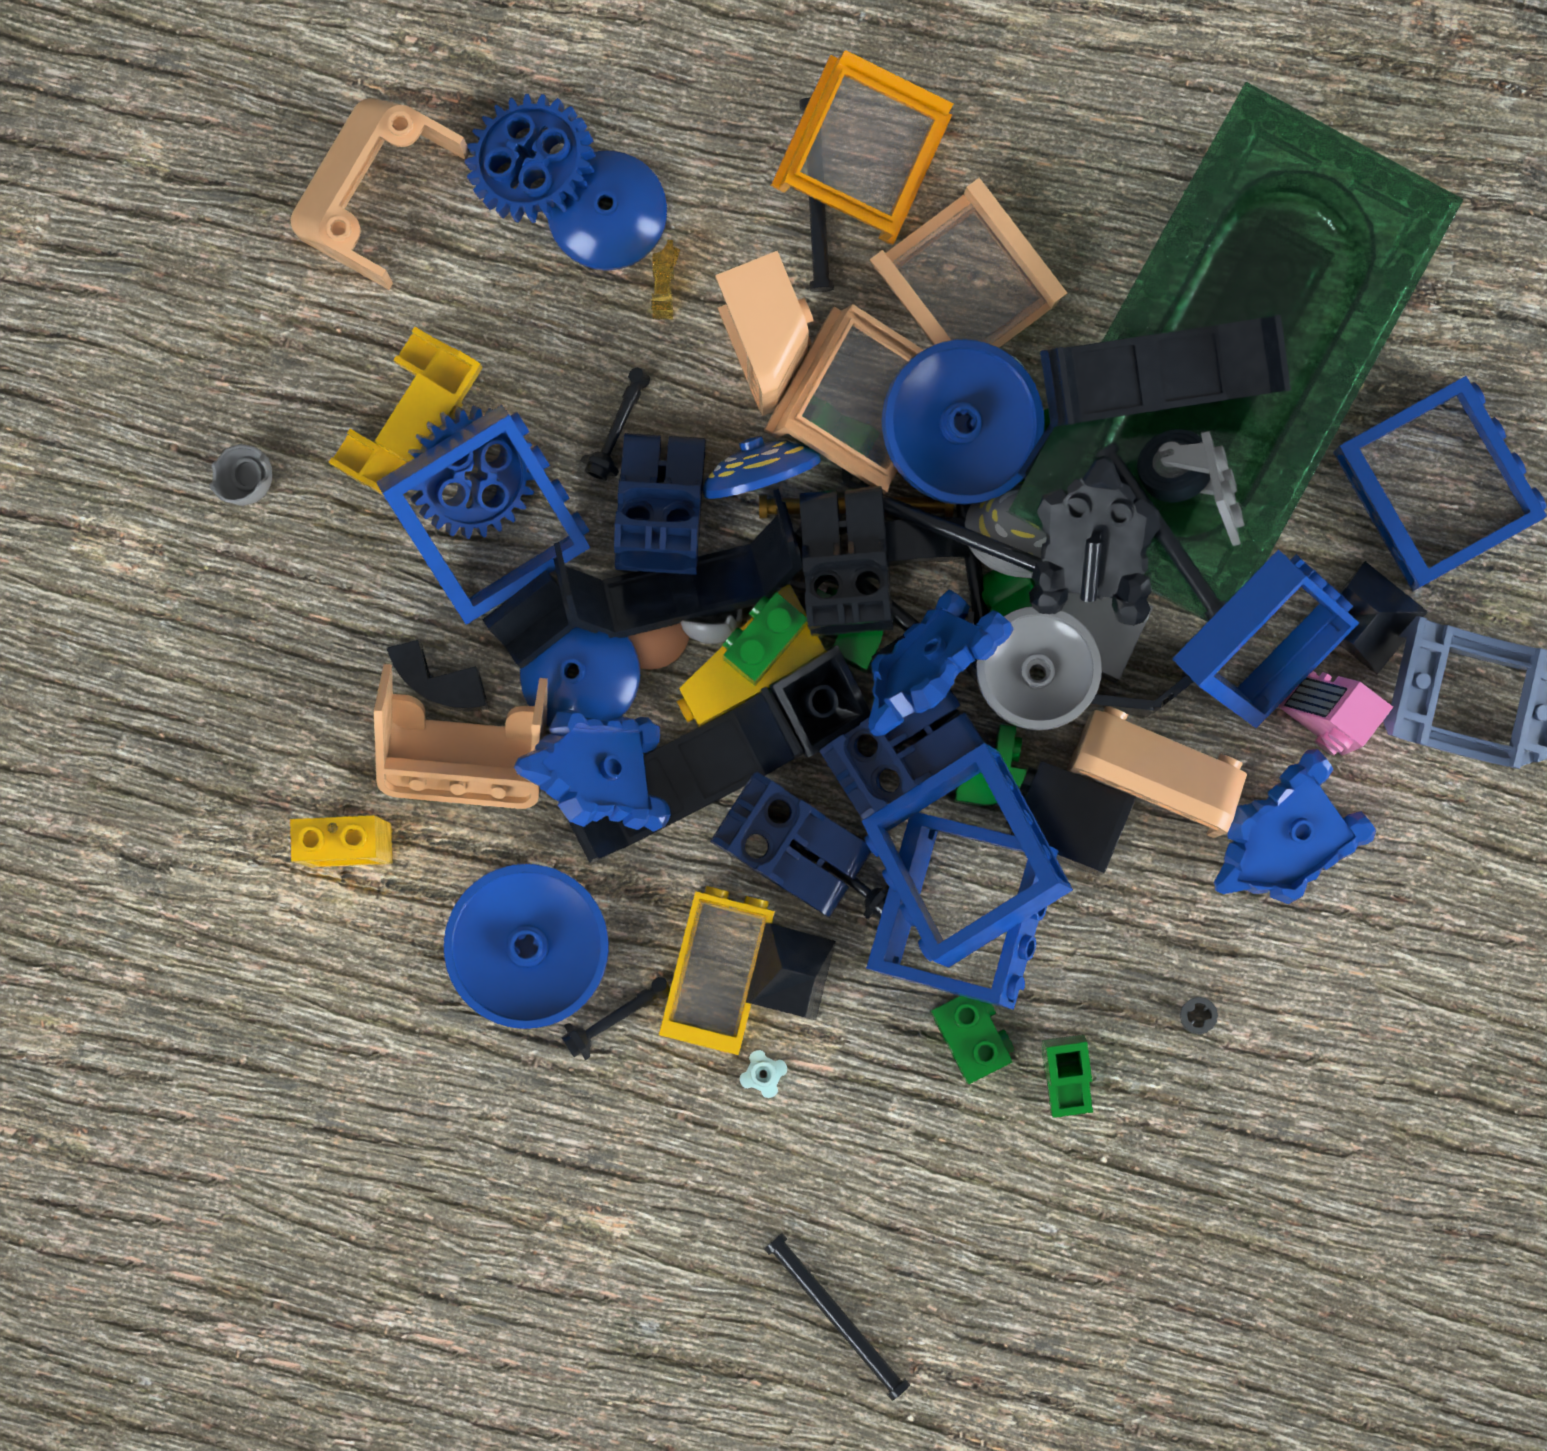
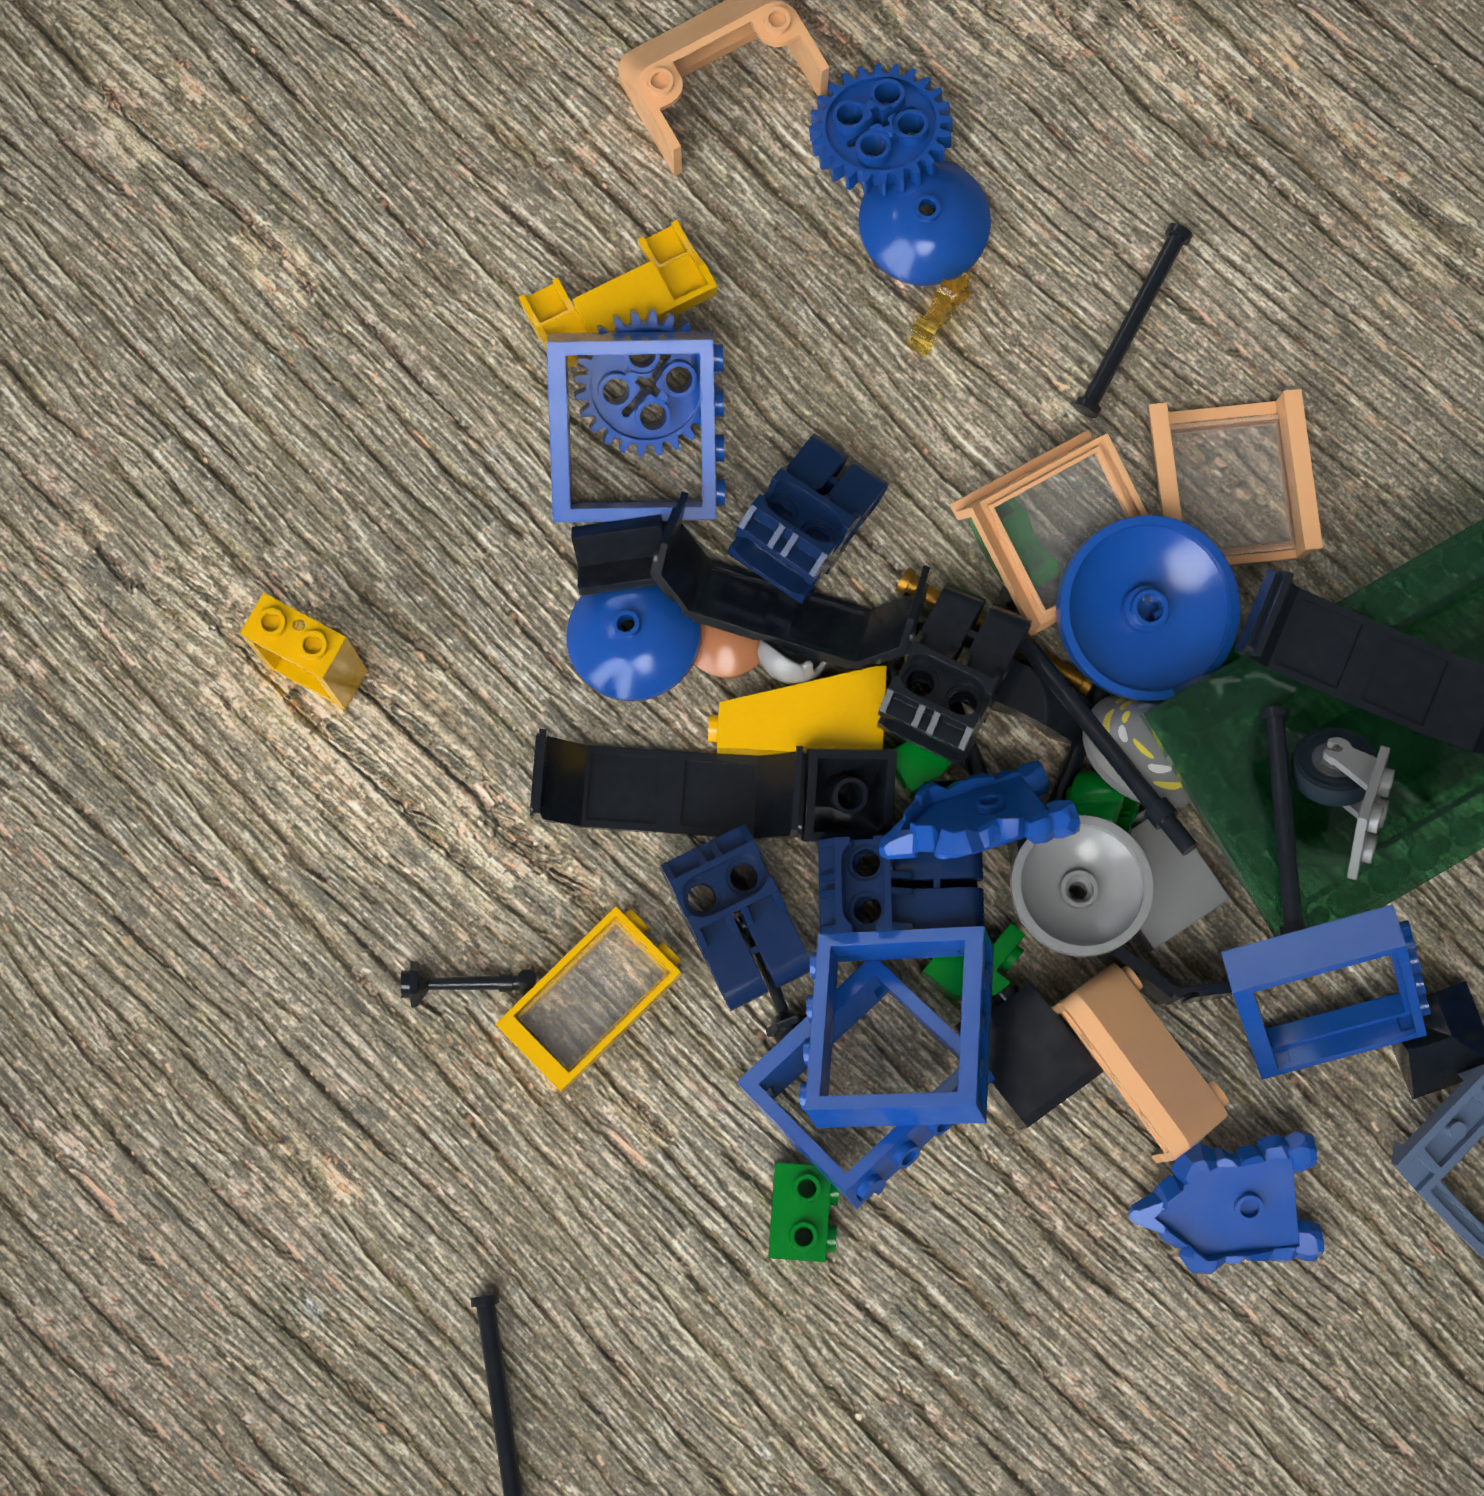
camera: 30 degrees right, 5 degrees down
(241, 475) = (429, 261): light grey hair -> none
(453, 691) = (502, 578): black brick -> none
(454, 759) = (465, 645): light nougat windscreen -> none
(526, 946) = (421, 862): blue dish -> none
(597, 769) = (592, 731): blue shield -> none
(600, 464) = (774, 449): black piece -> none
(759, 466) = (925, 532): blue dish -> none
(765, 326) = (1011, 401): light nougat windscreen -> none
(765, 638) = (829, 701): green brick -> none
(766, 1085) = (578, 1113): light aqua plate -> none
(790, 971) = (661, 1041): black slope -> none
(864, 143) = (1211, 296): piece -> none
(1067, 1075) = (872, 1309): green brick -> none
(1095, 545) = (1210, 795): black shield -> none
(1208, 1024) = (1042, 1344): dark grey bush -> none
(1337, 712) = (1353, 1109): bright pink wedge -> none

